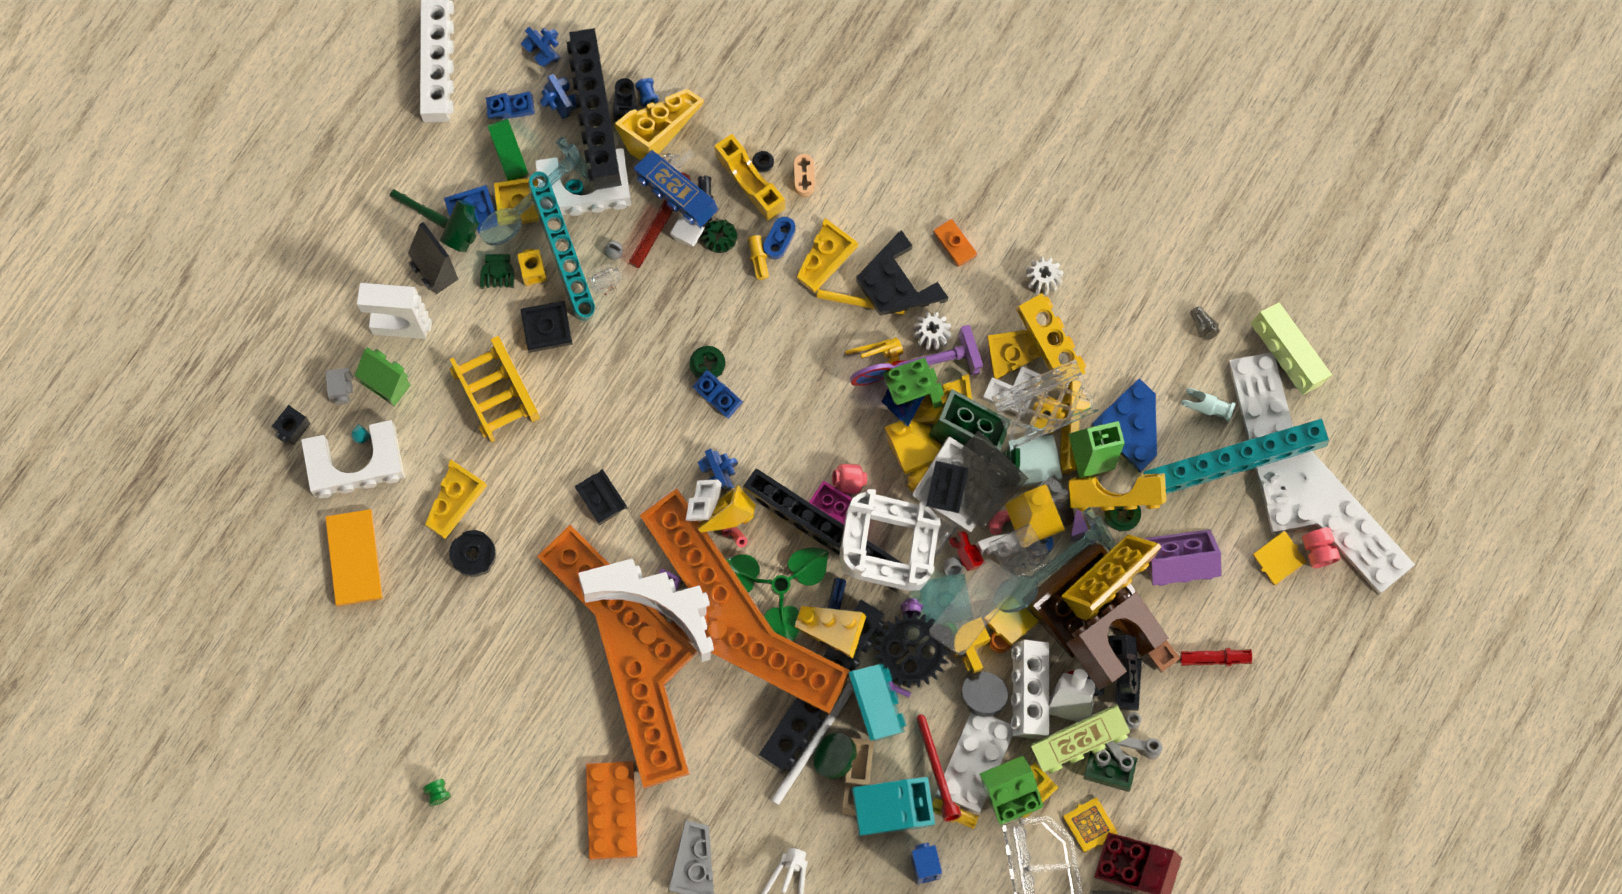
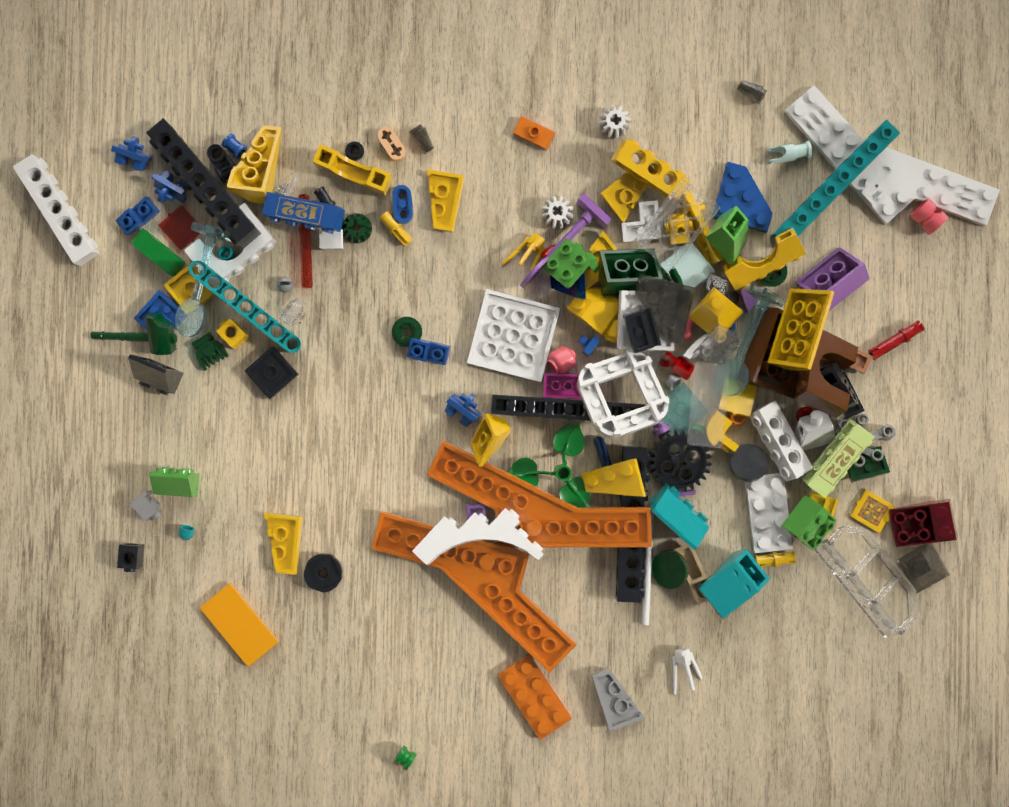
camera: 30 degrees left, 15 degrees up
(383, 467) = (181, 580): white arch -> none
(394, 310) = (150, 432): white arch -> none
(506, 371) = (264, 423): yellow fence -> none
(543, 138) = (178, 227): none -> clear red piece
(600, 497) = (390, 477): black plate -> none
(705, 500) = (470, 442): white slope -> none
(738, 537) = (508, 450): coral arm -> none
(814, 427) = (513, 335): none -> white plate
(837, 185) = (421, 138): none -> clear smoke cone
(847, 299) = (491, 219): yellow bar -> none
(887, 480) = (589, 345): none -> blue tile
(888, 285) = (505, 195): black wing -> none
(926, 863) = (779, 610): blue brick -> none
(950, 810) = (773, 561): red piece -> none
(1279, 558) = (900, 240): yellow piece -> none
(1290, 348) = (827, 75): yellowish green brick -> none

